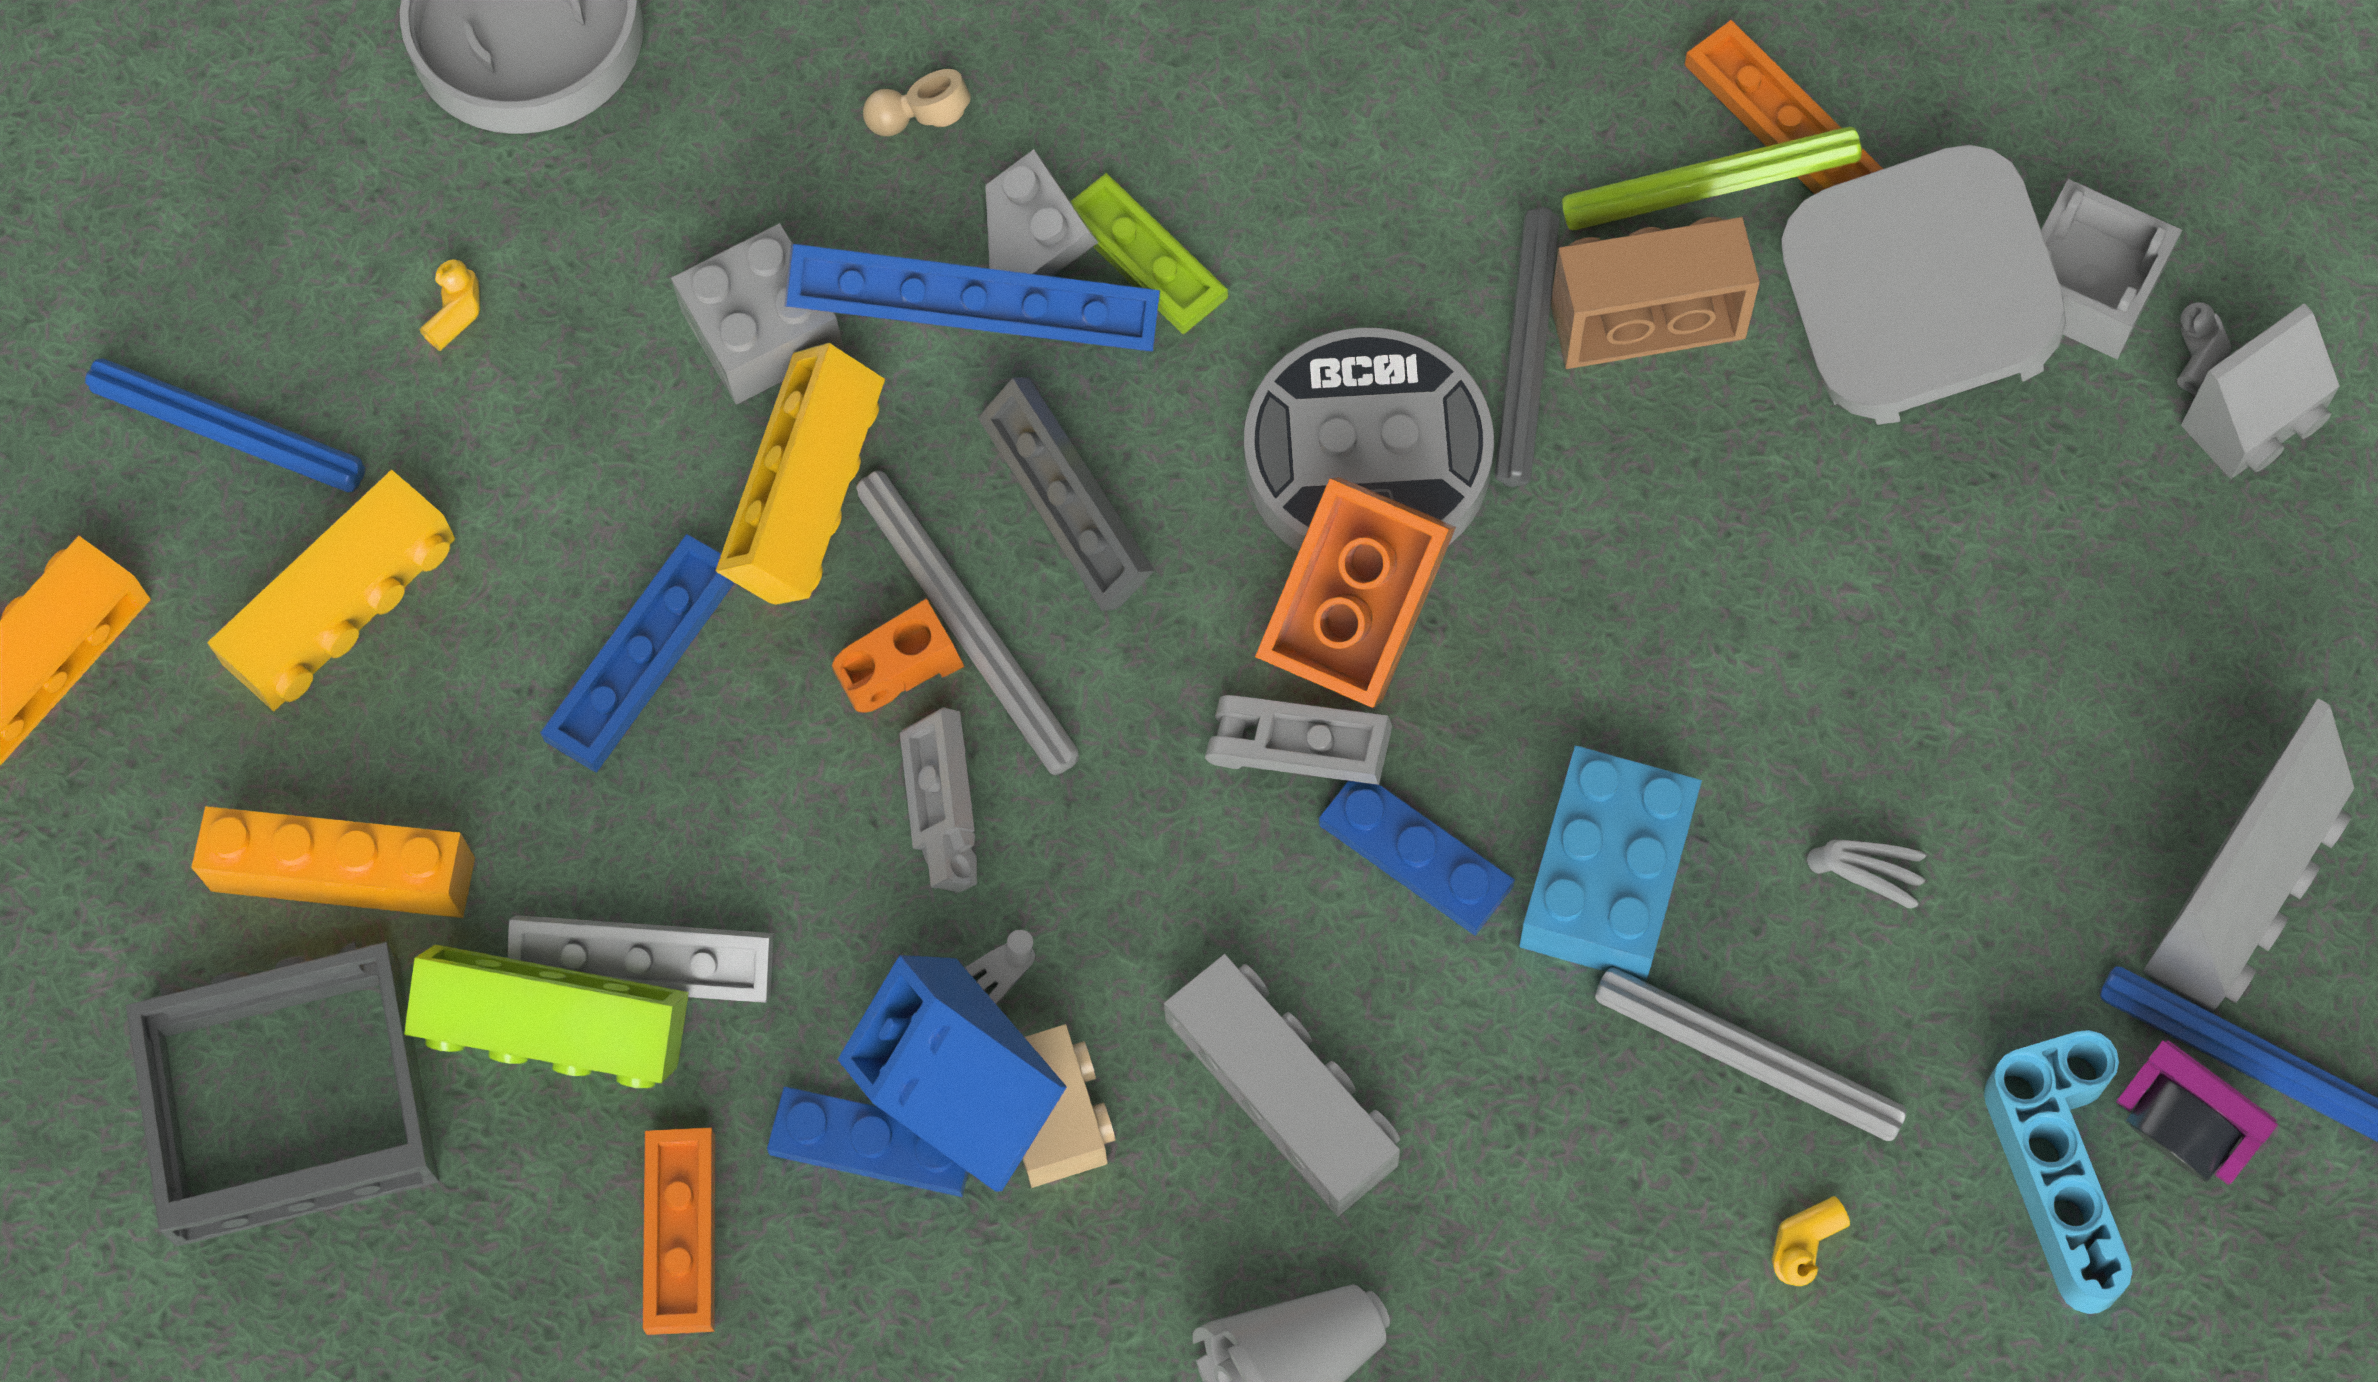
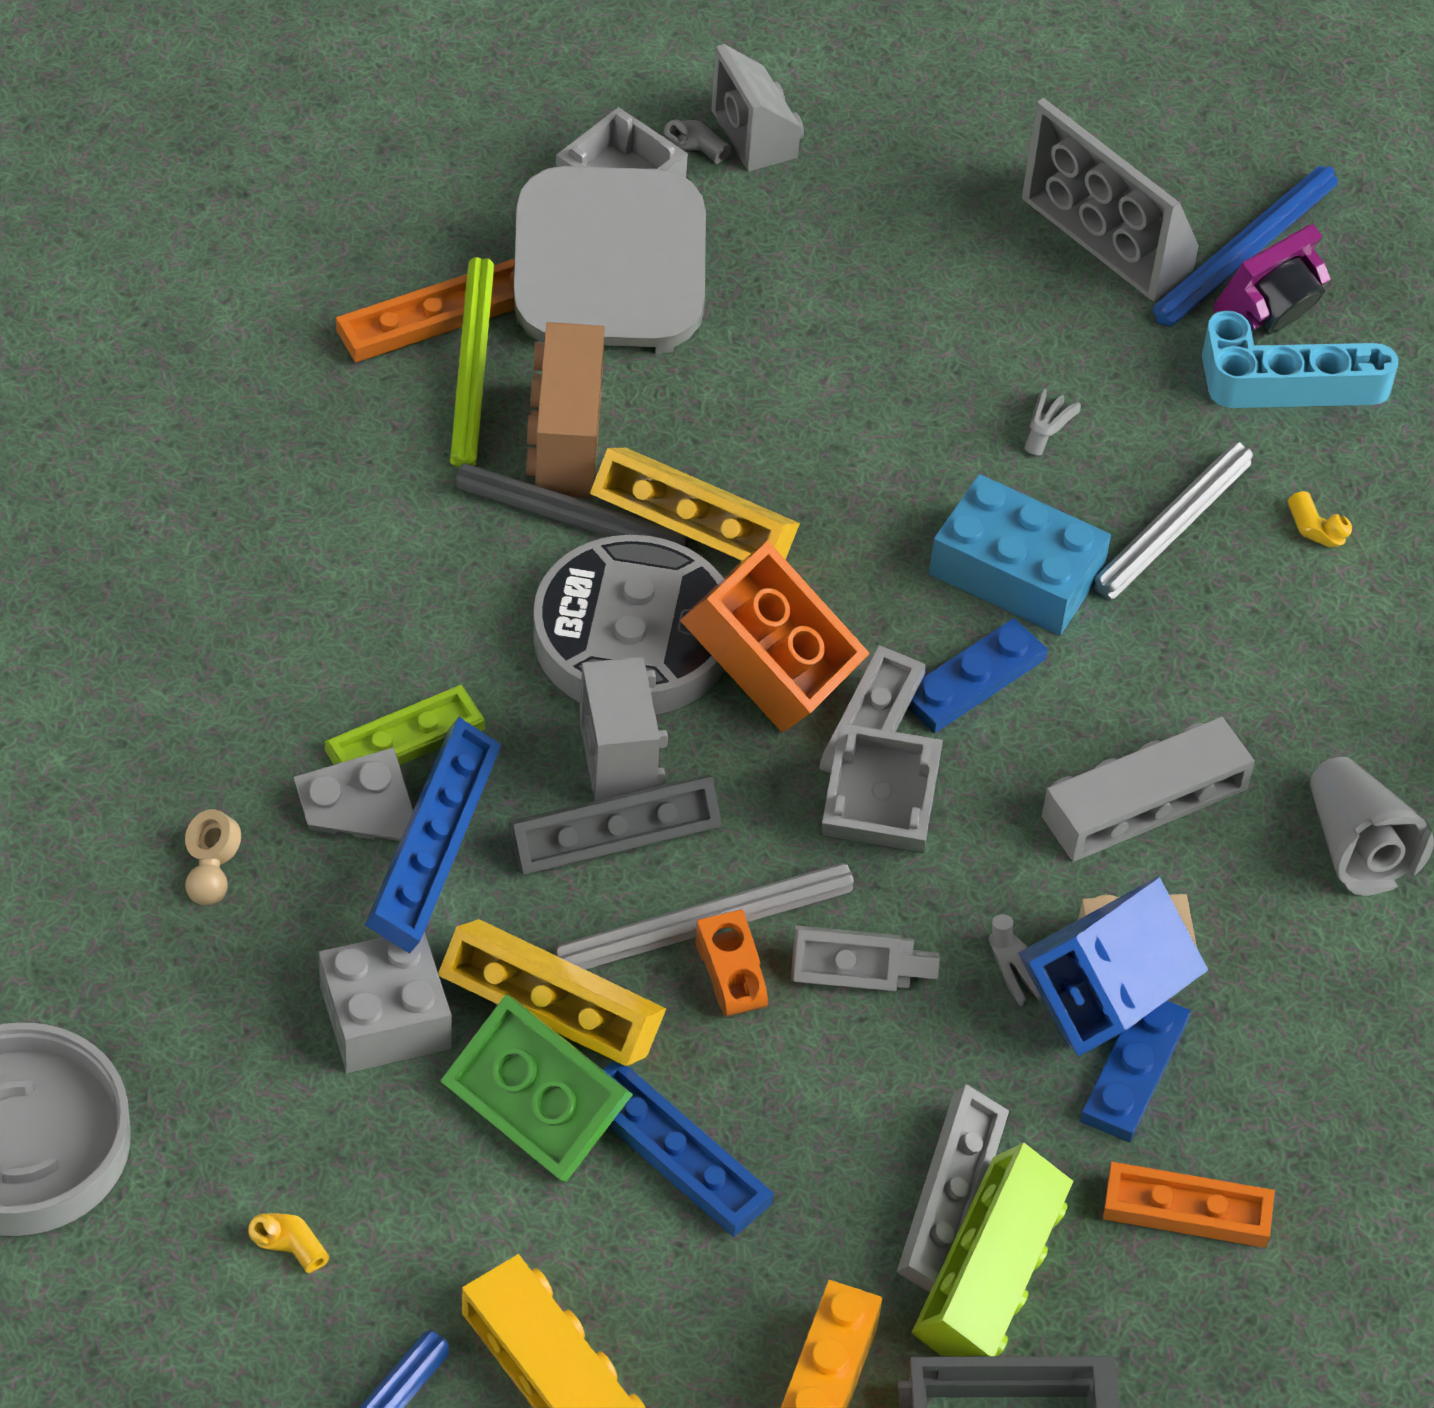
camera: 85 degrees left, 15 degrees down
(672, 488) = (536, 1088): none -> bright green plate
(1174, 763) = (881, 787): none -> light grey container
(1176, 456) = (620, 727): none -> light grey container
(1553, 471) = (690, 505): none -> yellow brick

